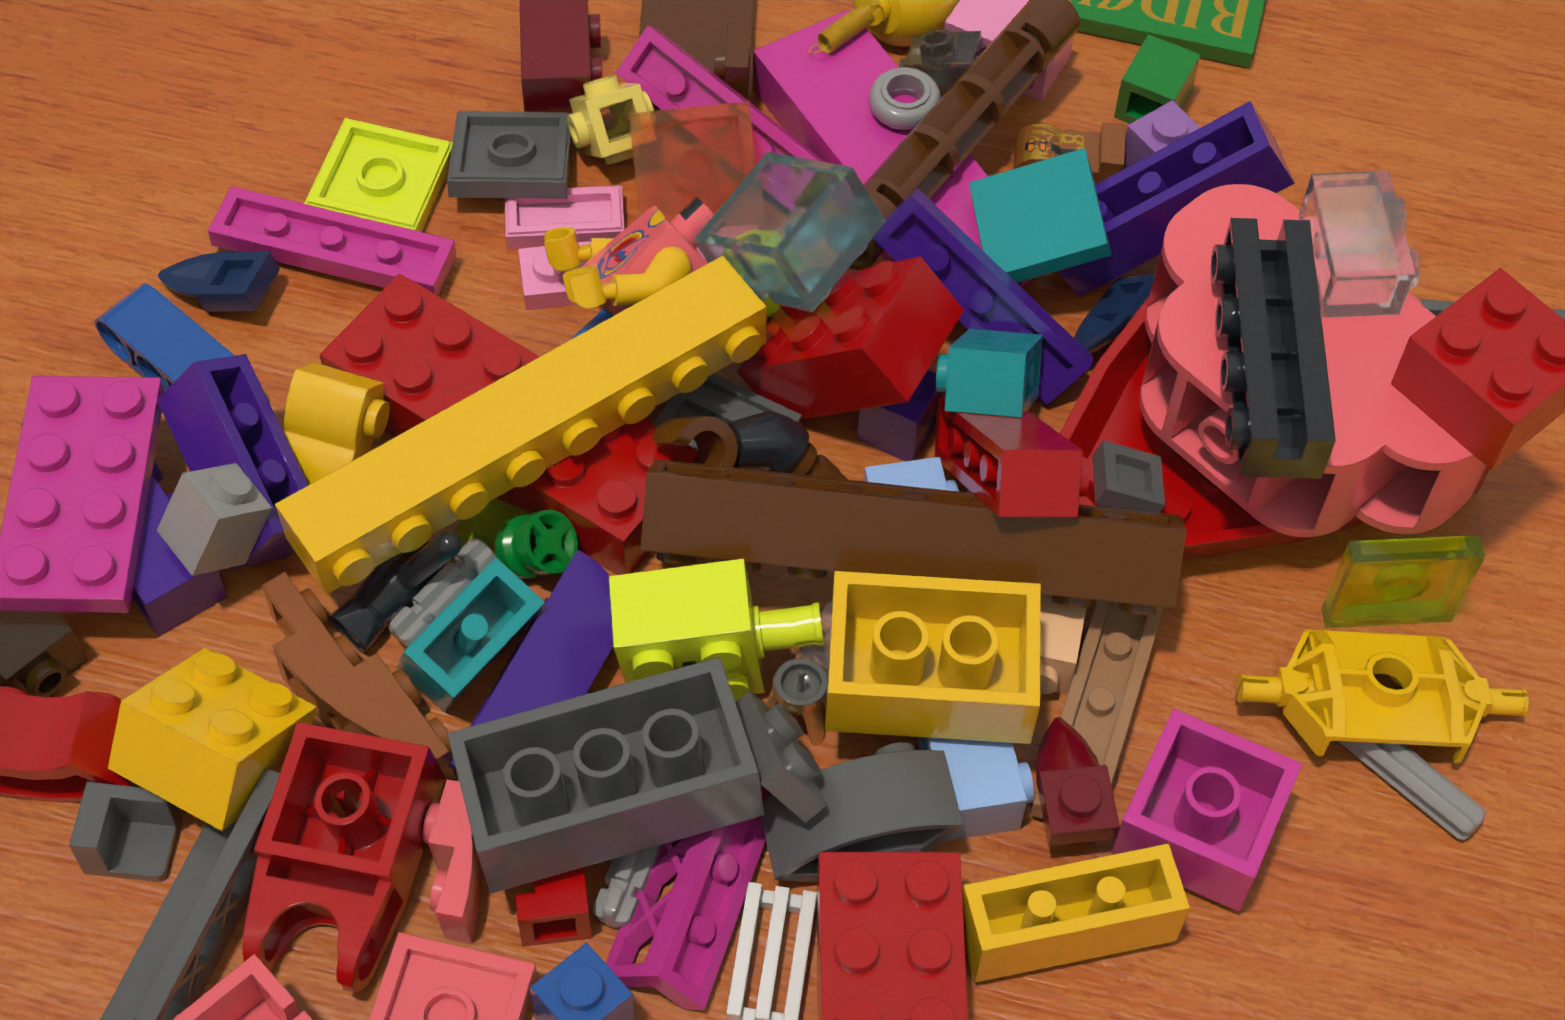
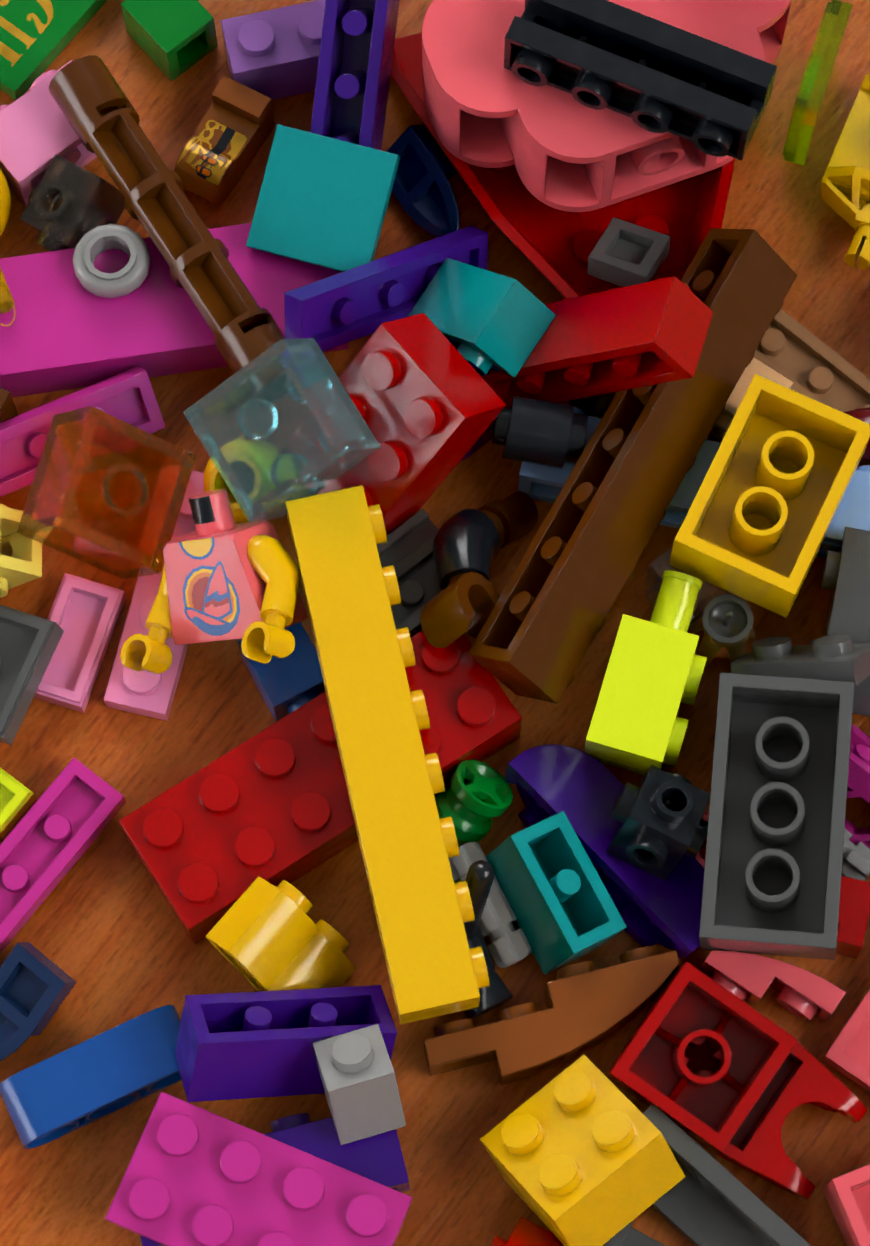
camera: 65 degrees left, 15 degrees up
(562, 668) = (659, 822): none -> black brick
(906, 449) = (540, 432): none -> black brick

